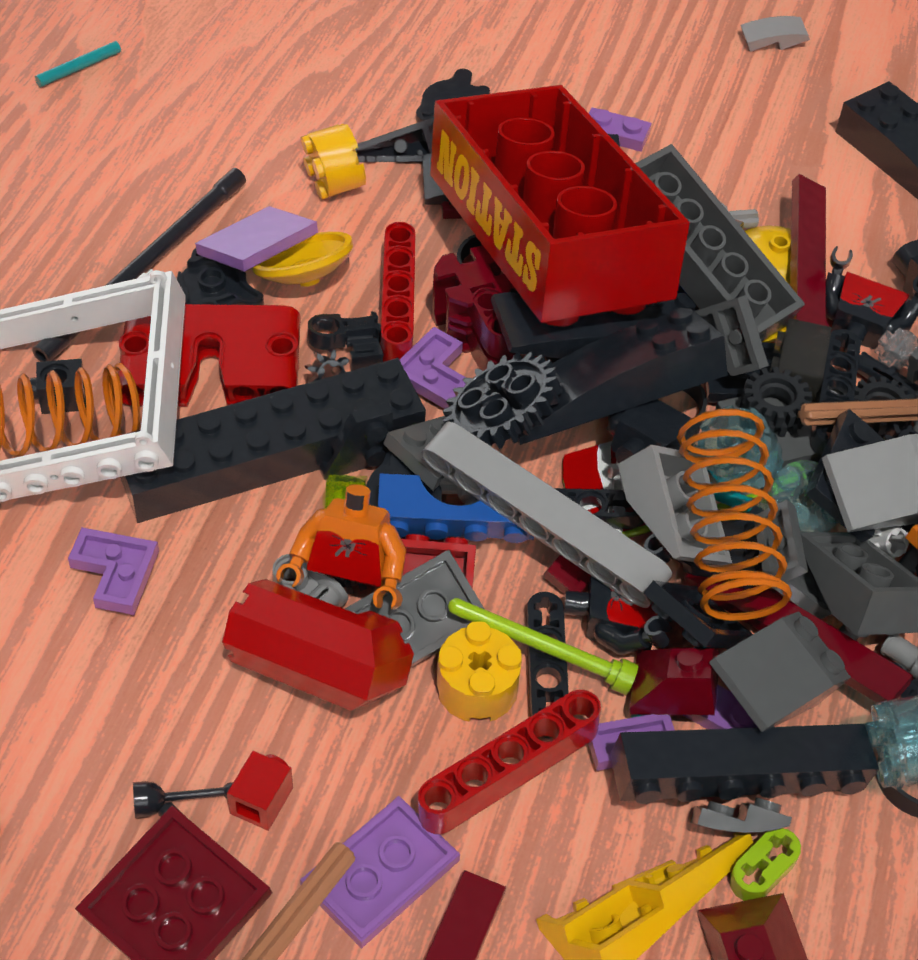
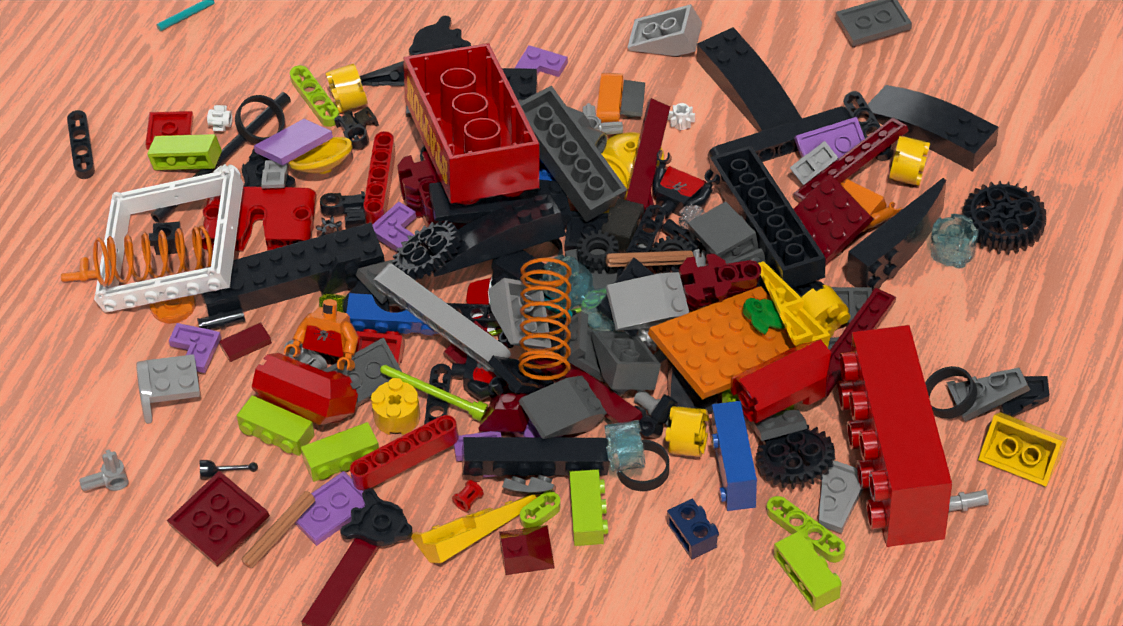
camera: 10 degrees right, 0 degrees up
(58, 223) = (168, 124): none -> red tile
(66, 633) = (166, 381): none -> light grey piece
(74, 505) = (173, 310): none -> orange tile
(85, 252) = (184, 152): none -> lime brick
(138, 204) = (219, 118): none -> white gear
(159, 520) = (221, 319): none -> black pin
(200, 559) = (245, 342): none -> dark red tile
(212, 178) = (265, 100): none -> black tyre
(231, 286) = (274, 175): none -> light grey slope
(260, 789) = (268, 465): red brick -> none
(267, 712) = (275, 425): none -> lime brick
(287, 172) = (313, 96): none -> lime beam
(352, 215) = (355, 126): none -> black piece
(389, 760) = (338, 451): none -> lime brick
(476, 901) = (378, 522): none -> black tile
(631, 840) = (467, 495): none -> red bush
(728, 175) = (610, 97): none -> orange beam
(740, 332) = (576, 210): dark grey wing -> none
(761, 180) = (632, 98): none -> dark grey slope
(788, 91) = (667, 32): none -> light grey slope
(841, 203) = (681, 116): none -> white gear
(853, 859) = (588, 507): none -> lime brick

